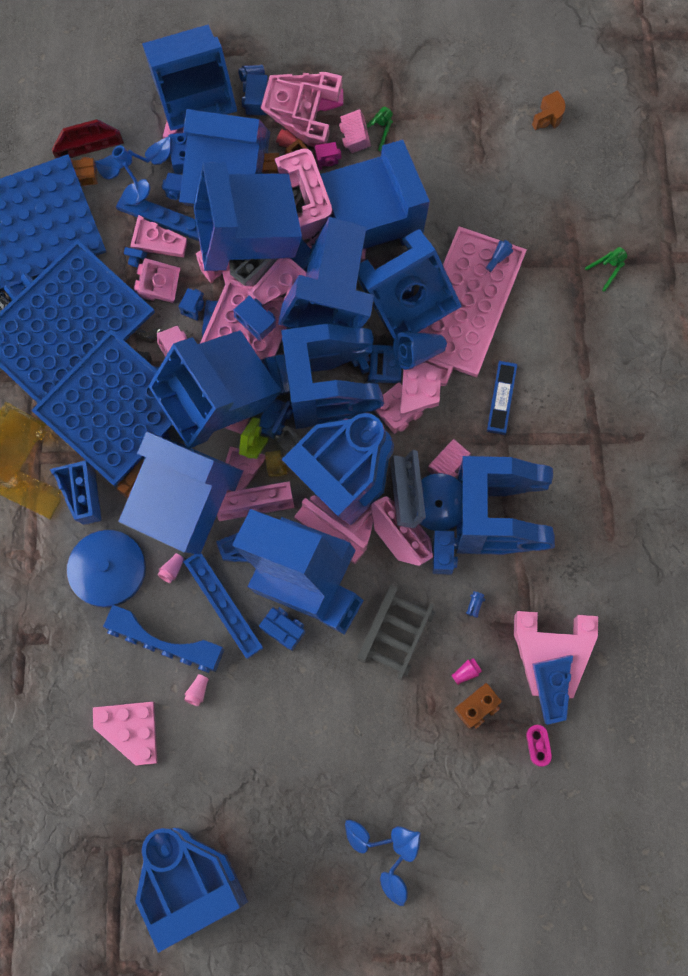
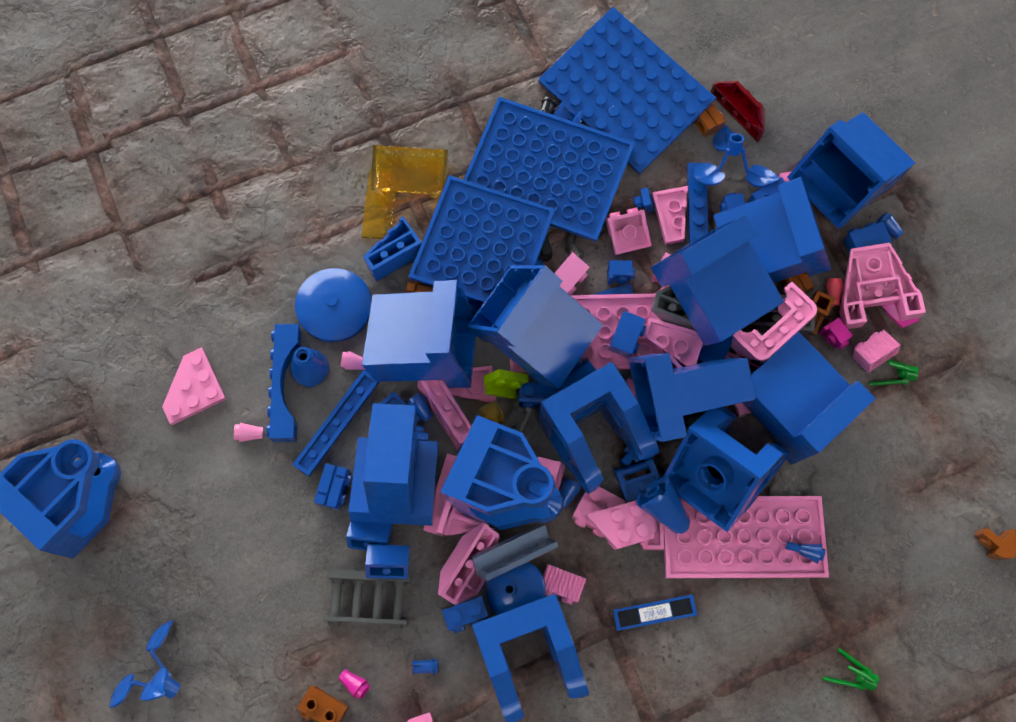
camera: 60 degrees right, 0 degrees up
(162, 615) = (309, 367): none -> blue cone
(235, 523) = (422, 407): none -> blue cone
(373, 598) = (387, 561): none -> blue brick

